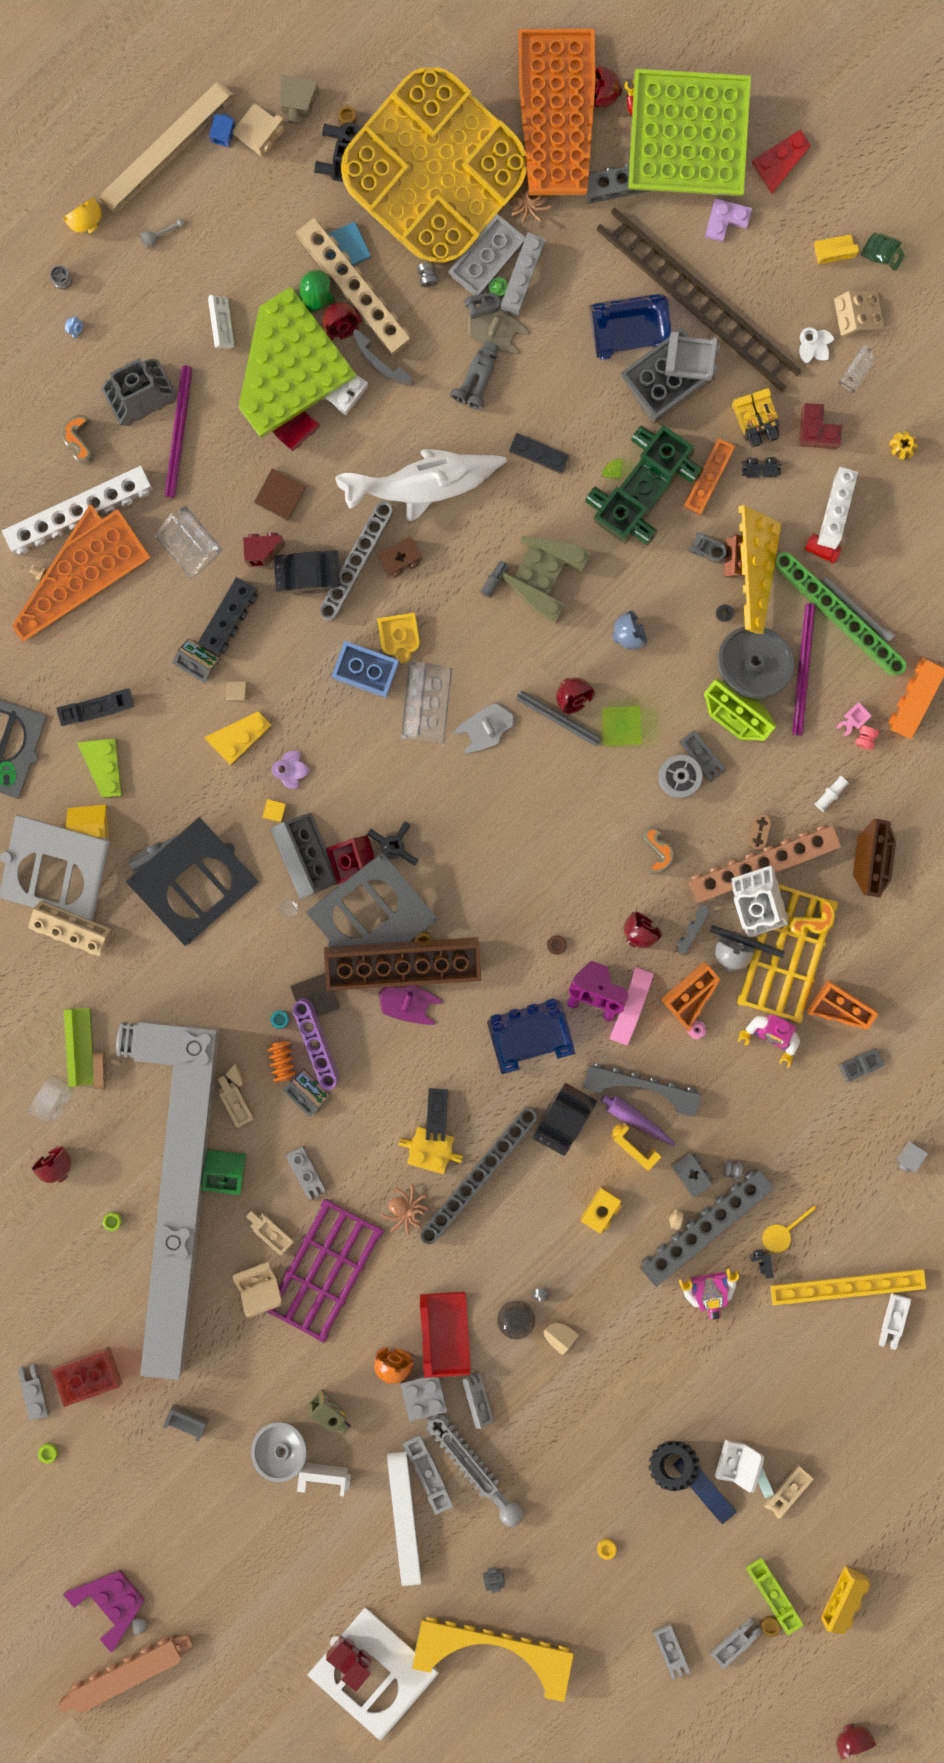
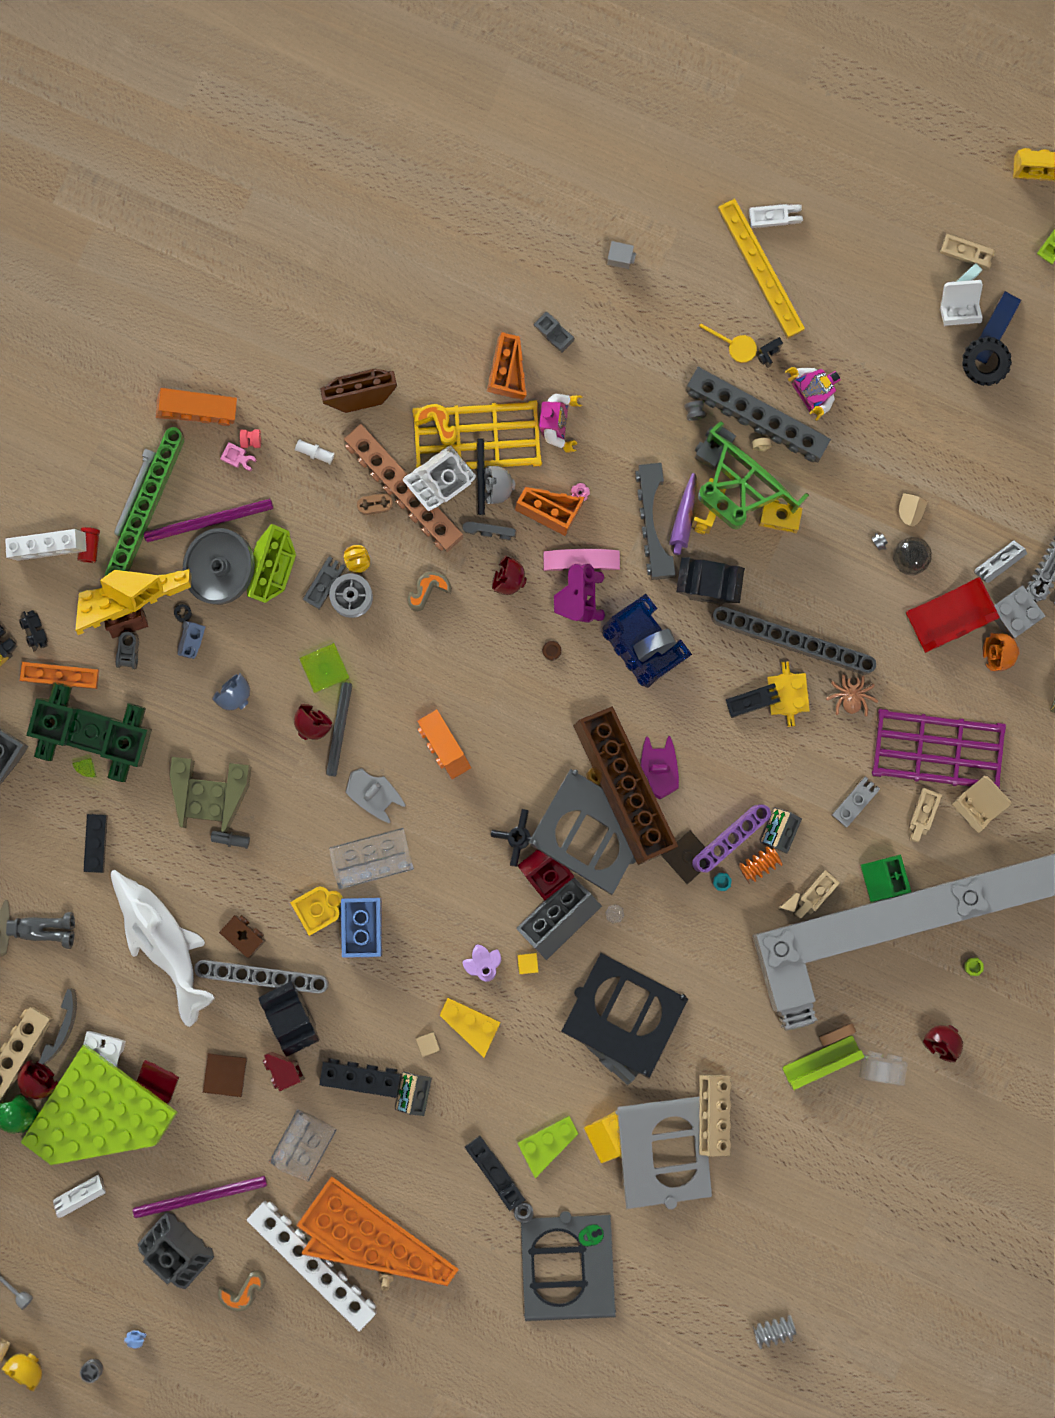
camera: 105 degrees left, 5 degrees down
(45, 724) = (523, 1206): none -> flat silver plate
(506, 809) = (443, 744): none -> orange wedge
(525, 1048) = (657, 642): none -> dark grey slope
(642, 1150) = (734, 515): none -> bright green piece
(696, 611) = (190, 639): none -> sand blue leg
(713, 795) = (356, 558): none -> yellow piece
(763, 572) = (131, 588): none -> yellow slope

